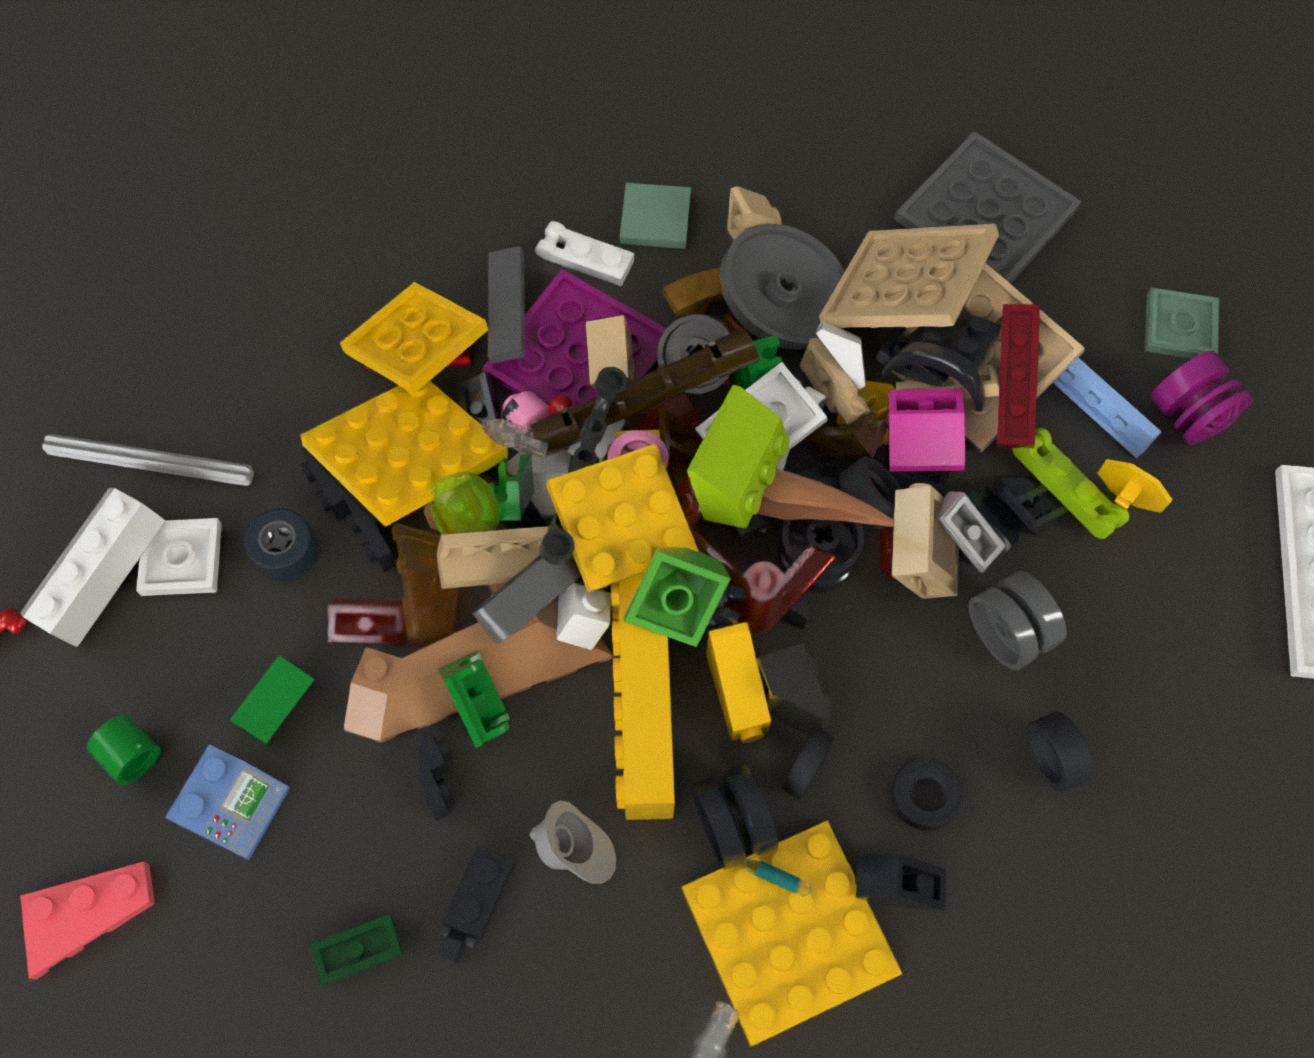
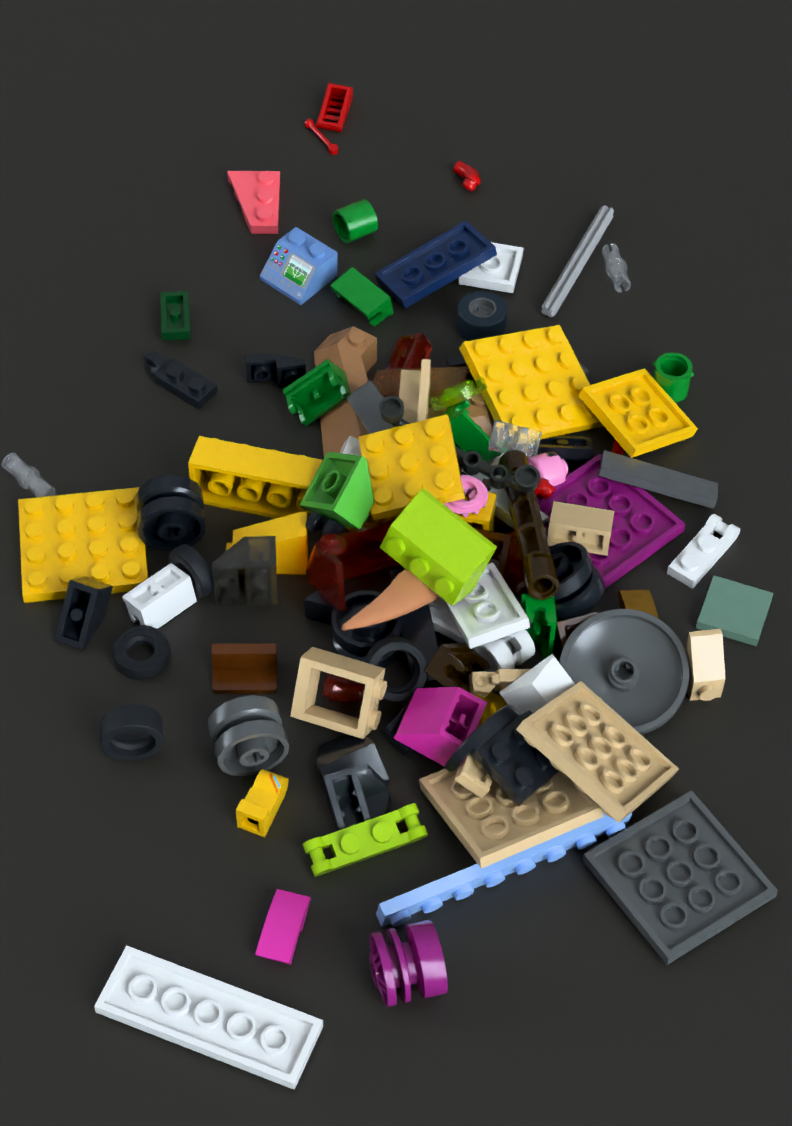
camera: 105 degrees right, 15 degrees down
(92, 567) = (494, 216): white slope -> none
(157, 412) = (616, 268): none -> clear pin
(198, 618) = (435, 264): none -> dark blue plate
(340, 313) = (673, 374): none -> green piece
(574, 843) = (192, 420): light grey piece -> none
(778, 876) = (118, 533): teal piece -> none
(851, 795) = (160, 597): none -> white hinge
(908, 668) = (244, 668): none -> reddish brown panel
(969, 530) = (335, 719): light grey slope -> none
(1018, 376) = (470, 801): dark red plate -> none
(1077, 594) = (262, 802): none -> yellow leg
(1134, 486) = (338, 871): yellow piece -> none
(1181, 323) = (506, 1010): sand green tile -> none
(1196, 531) = (283, 926): none -> dark pink slope

